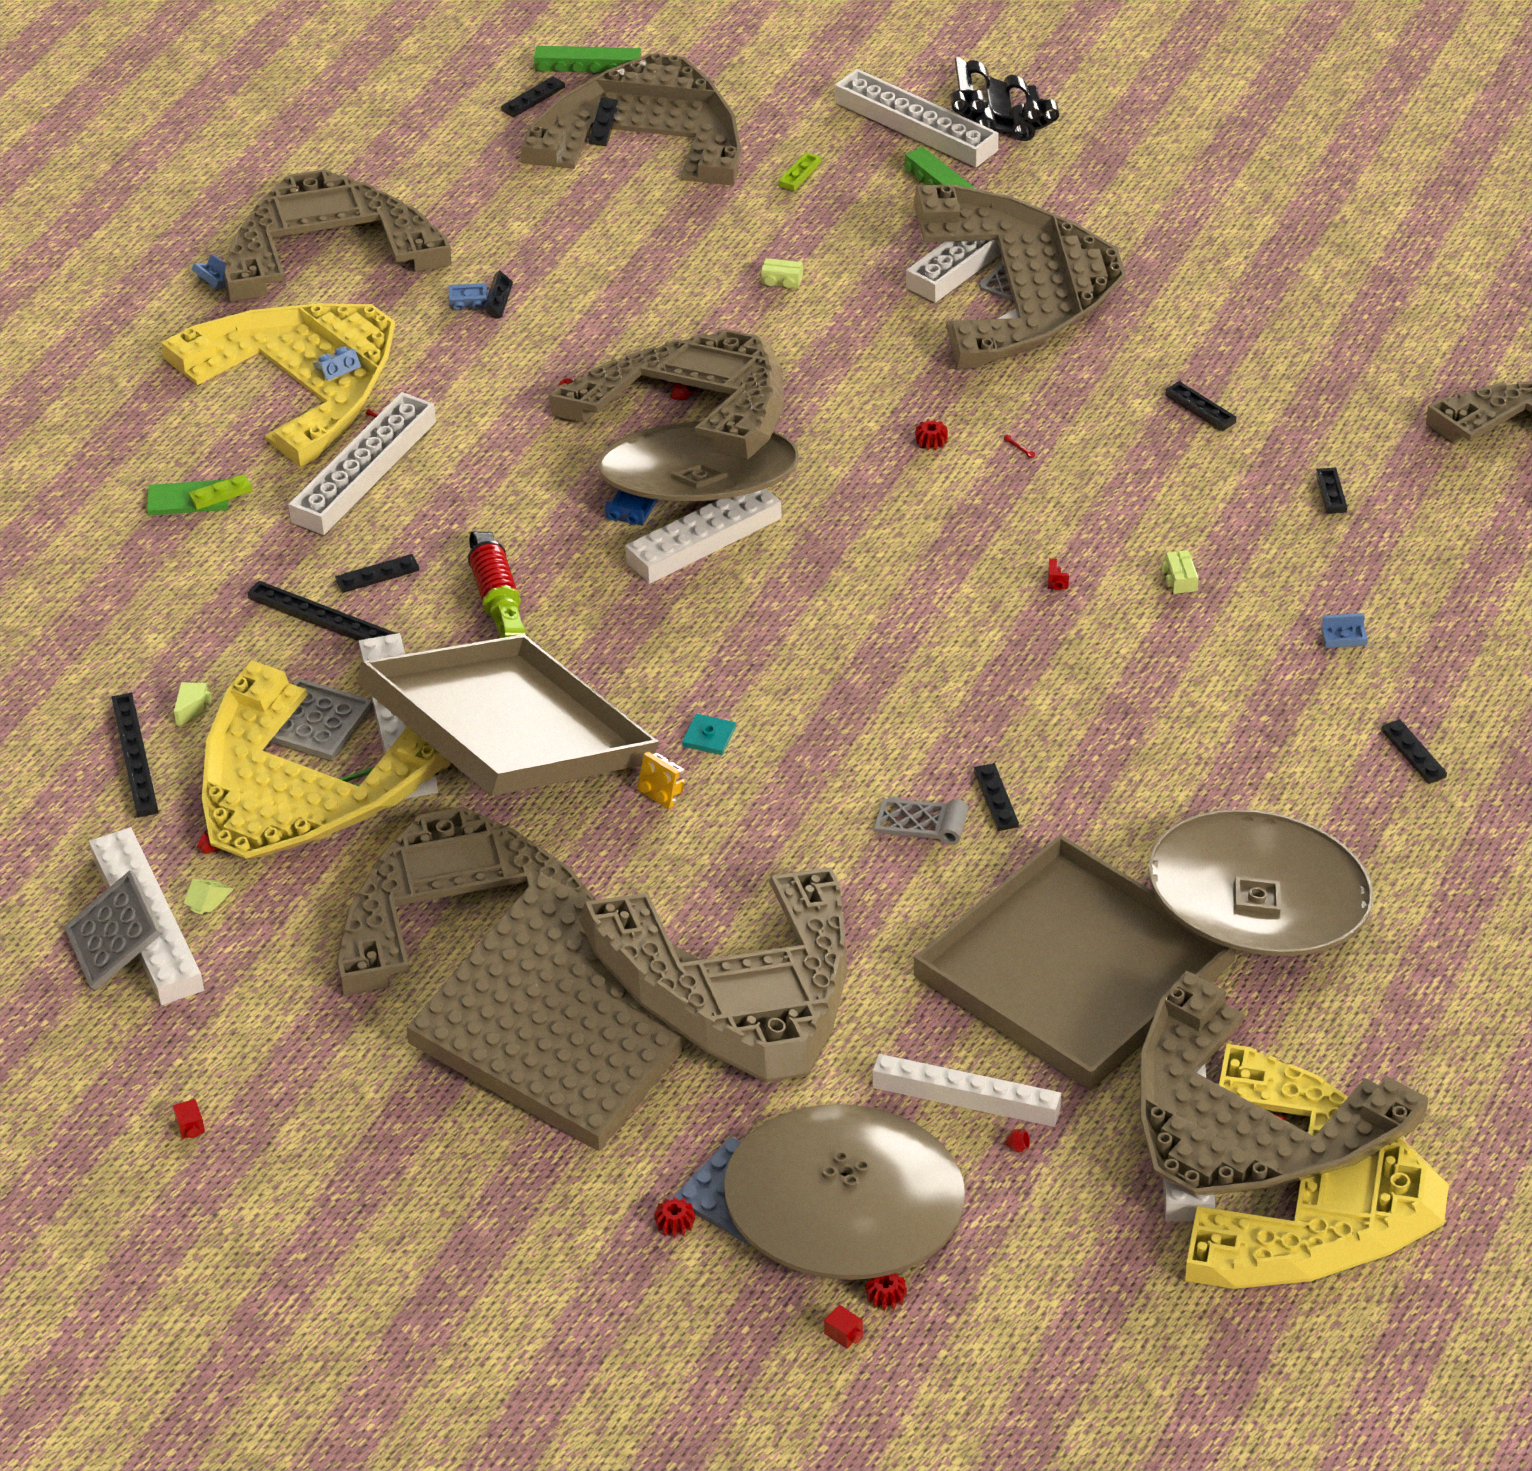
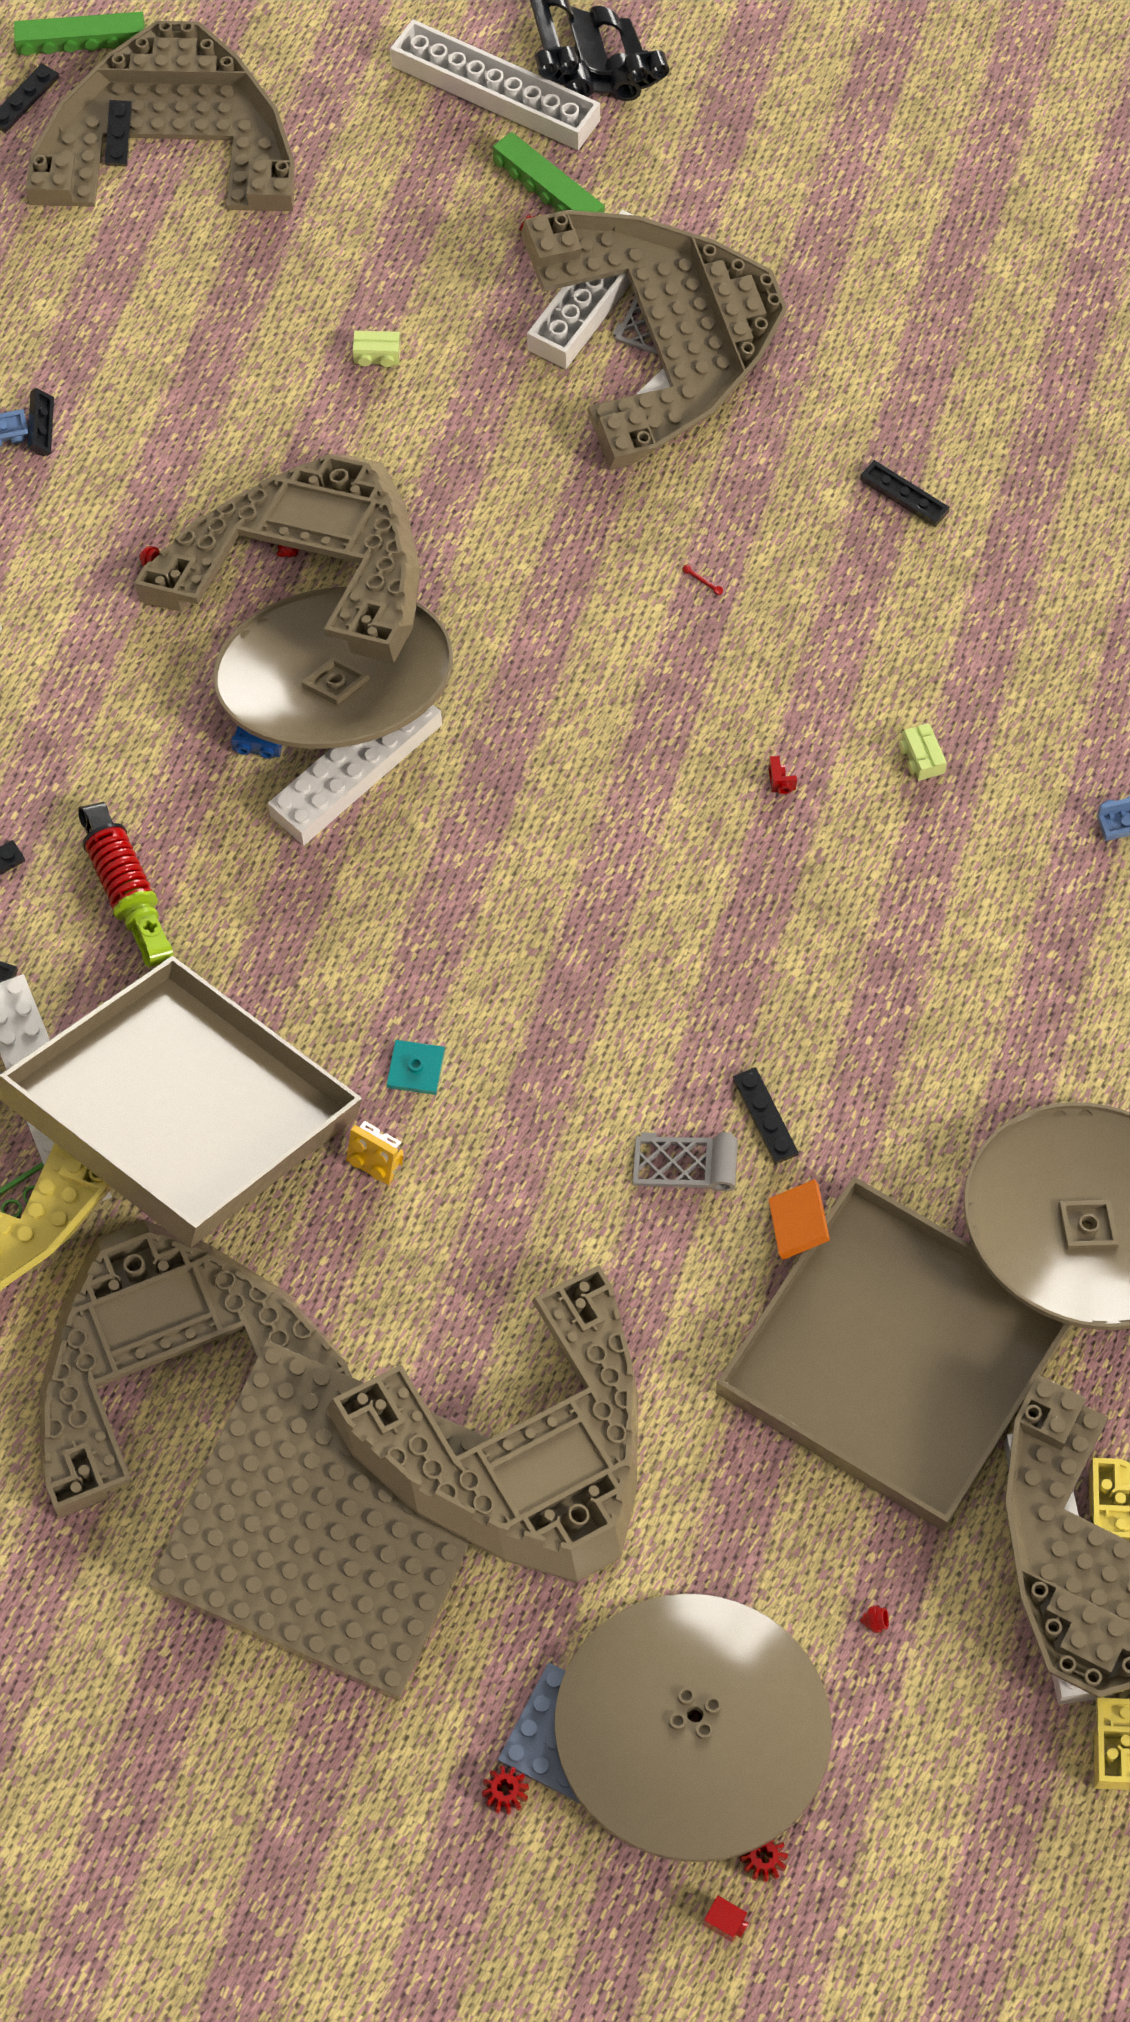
camera: 10 degrees left, 20 degrees up
(799, 171) = (369, 182): lime plate -> none
(931, 434) = (597, 578): red gear -> none
(967, 1090) = (807, 1558): white brick -> none
(1007, 861) = (799, 1219): none -> orange tile
(1331, 490) = (1076, 604): black plate -> none

